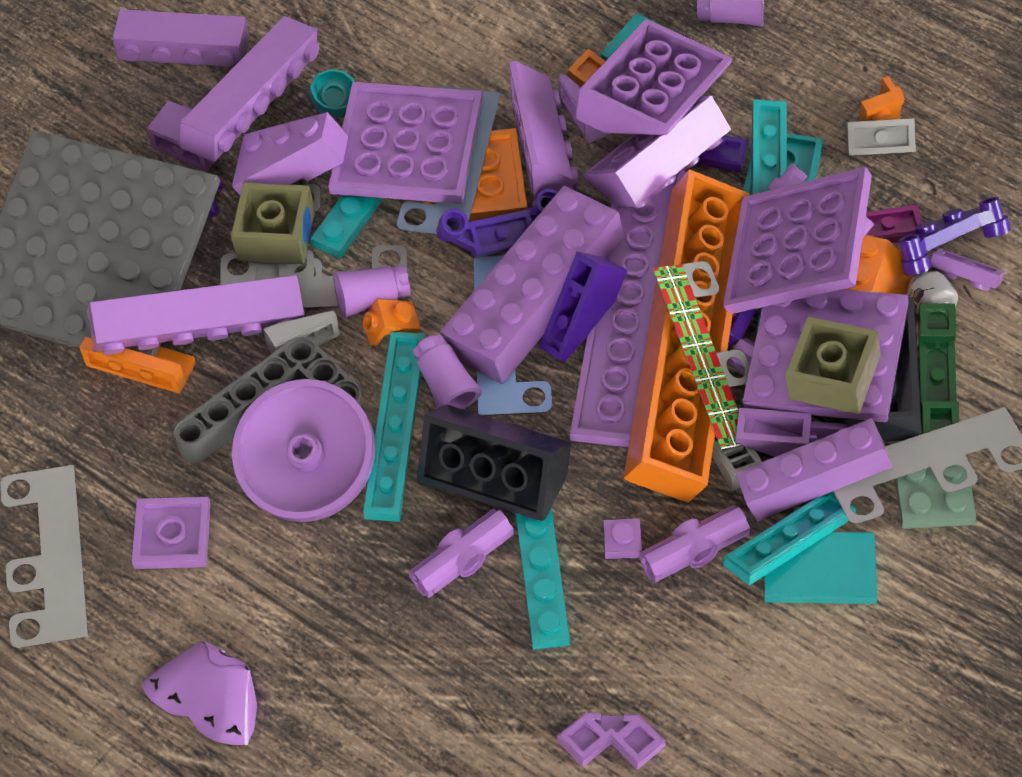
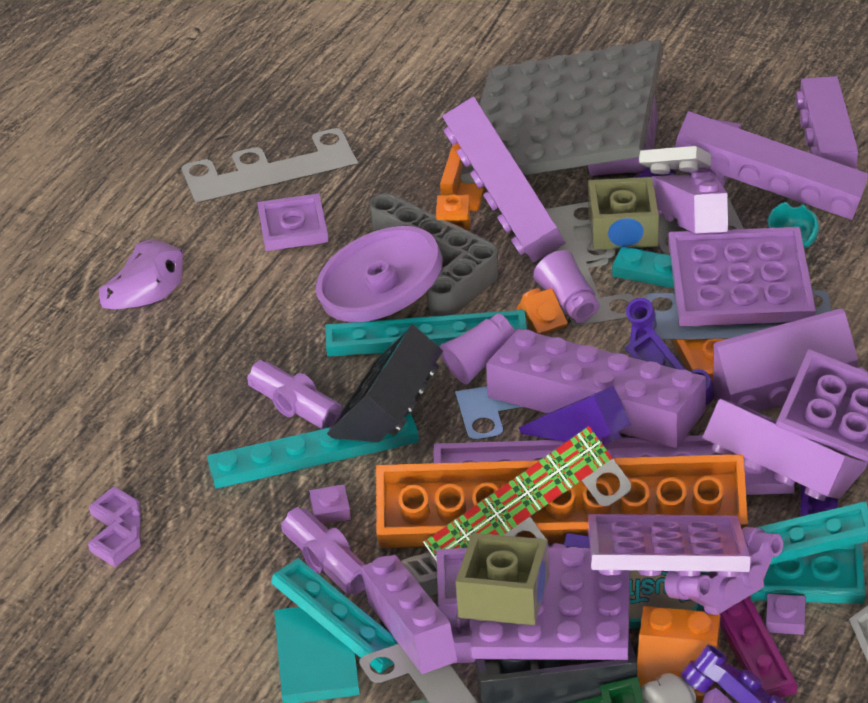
camera: 80 degrees right, 15 degrees down
(222, 369) = (454, 210): none -> orange bracket
(244, 142) = (682, 158): none -> light grey plate
(309, 327) = (511, 258): light grey slope -> none

